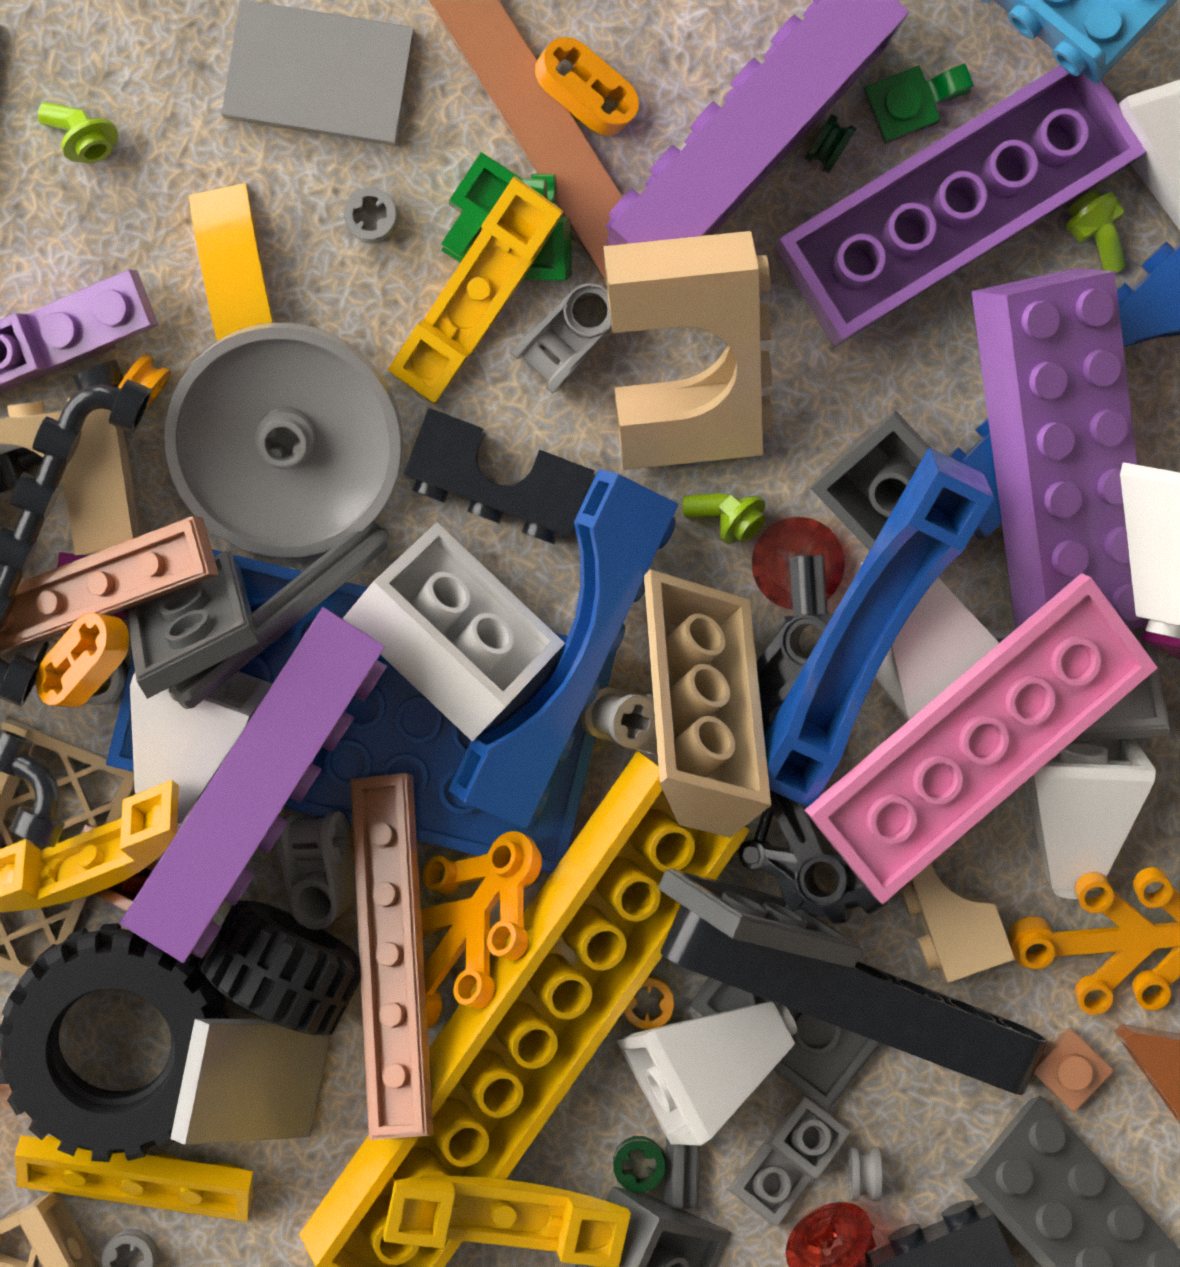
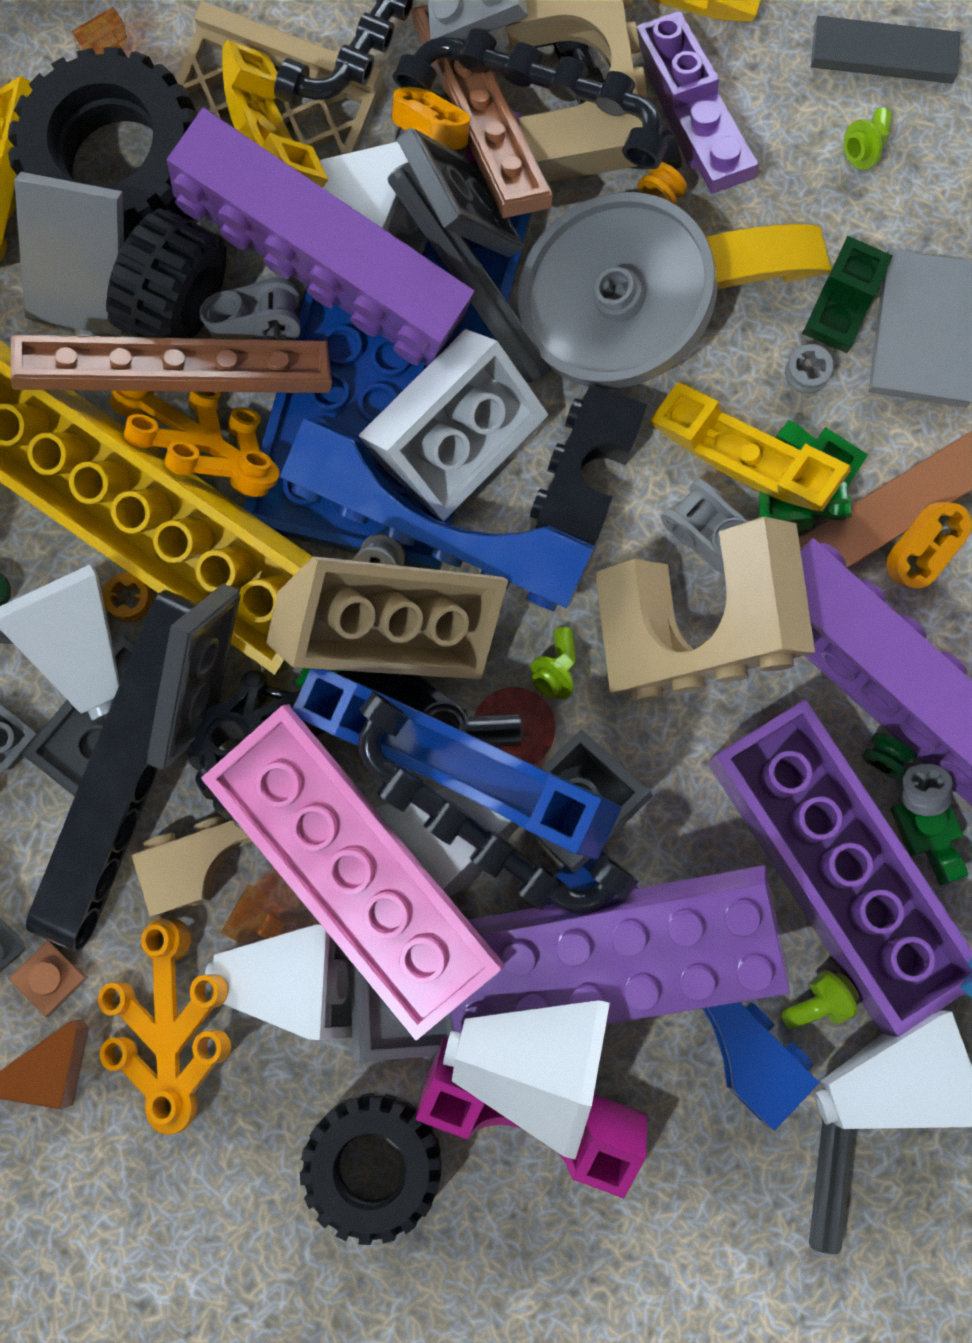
camera: 90 degrees right, 10 degrees down
(279, 166) = (847, 294): none -> dark green slope
(886, 98) = (936, 798): none -> light grey bush
(930, 632) = (449, 821): none -> black bar
(1010, 848) = (250, 916): none -> clear orange tile

